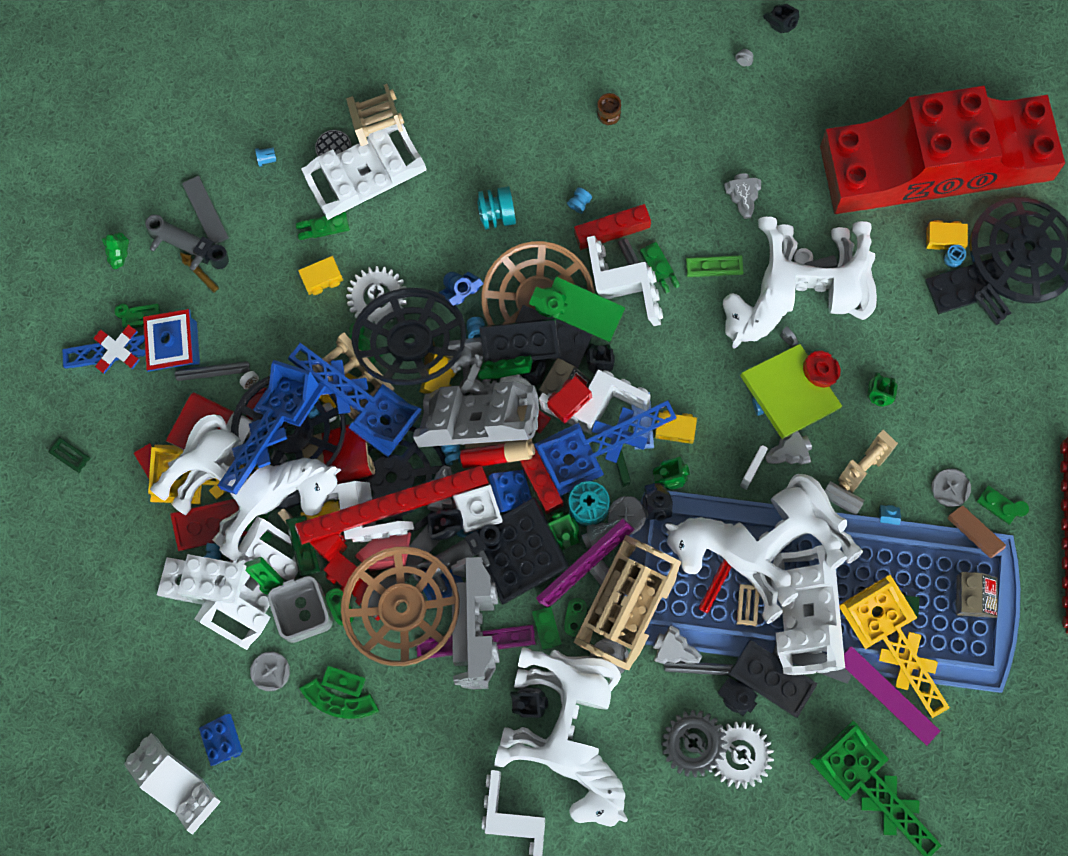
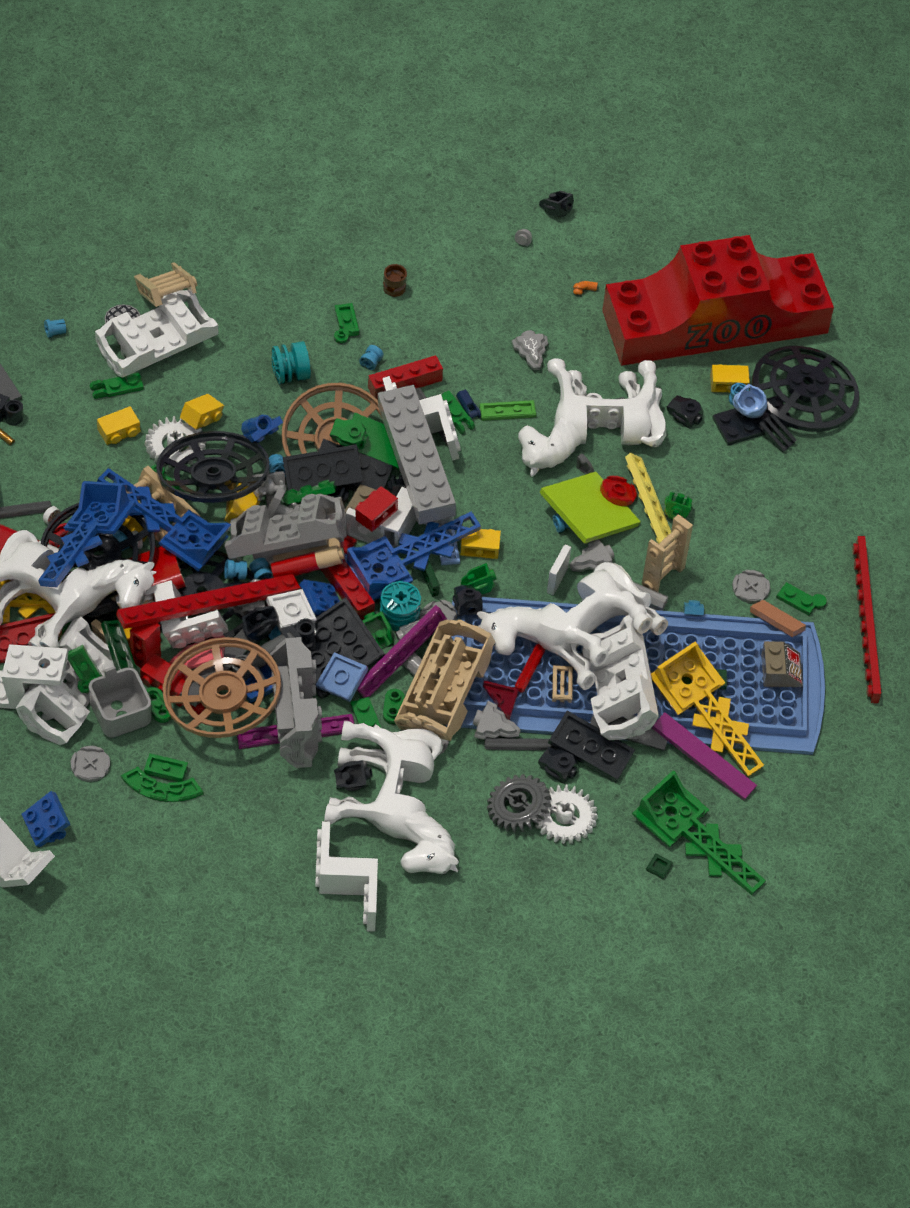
camera: 15 degrees left, 20 degrees down
(404, 263) = (202, 411): none -> yellow brick
(425, 455) = (235, 569): none -> dark azure wheel
(524, 588) = (342, 677): none -> medium blue tile
(557, 157) = (346, 321): none -> green hinge
(614, 336) = (416, 454): none -> light grey brick
(674, 257) = (467, 403): none -> dark blue bar
(686, 618) = (503, 696): none -> dark red tile
(801, 117) = (584, 285): none -> orange arm
(833, 820) = (659, 866): none -> dark green tile
(854, 382) = (648, 496): none -> light yellow plate
(898, 273) = (685, 411): none -> black hand
(967, 271) = (751, 402): none -> light blue hair

